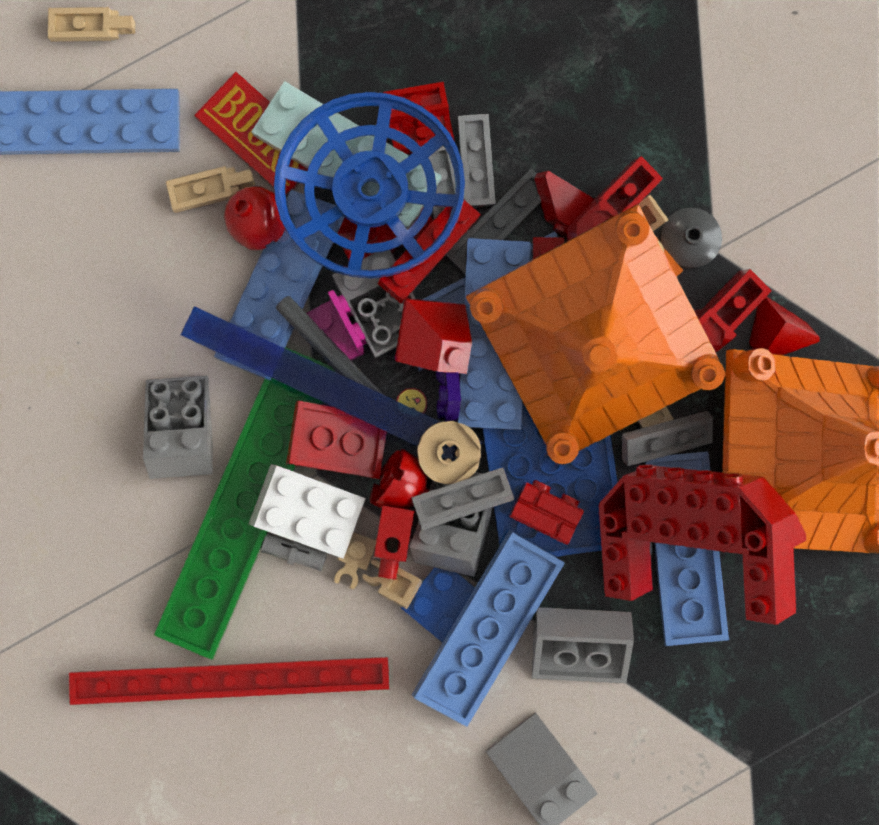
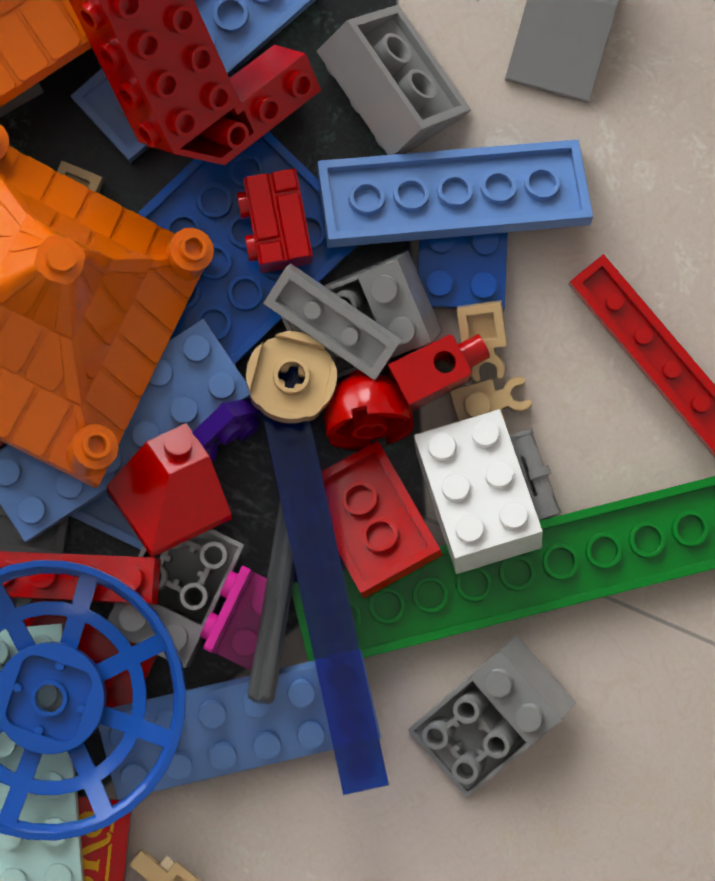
camera: 120 degrees left, 0 degrees up
(253, 218) = (183, 814): red cylinder -> none
(414, 399) = (259, 471): light yellow tile -> none
(667, 438) = (89, 150): light grey plate -> none

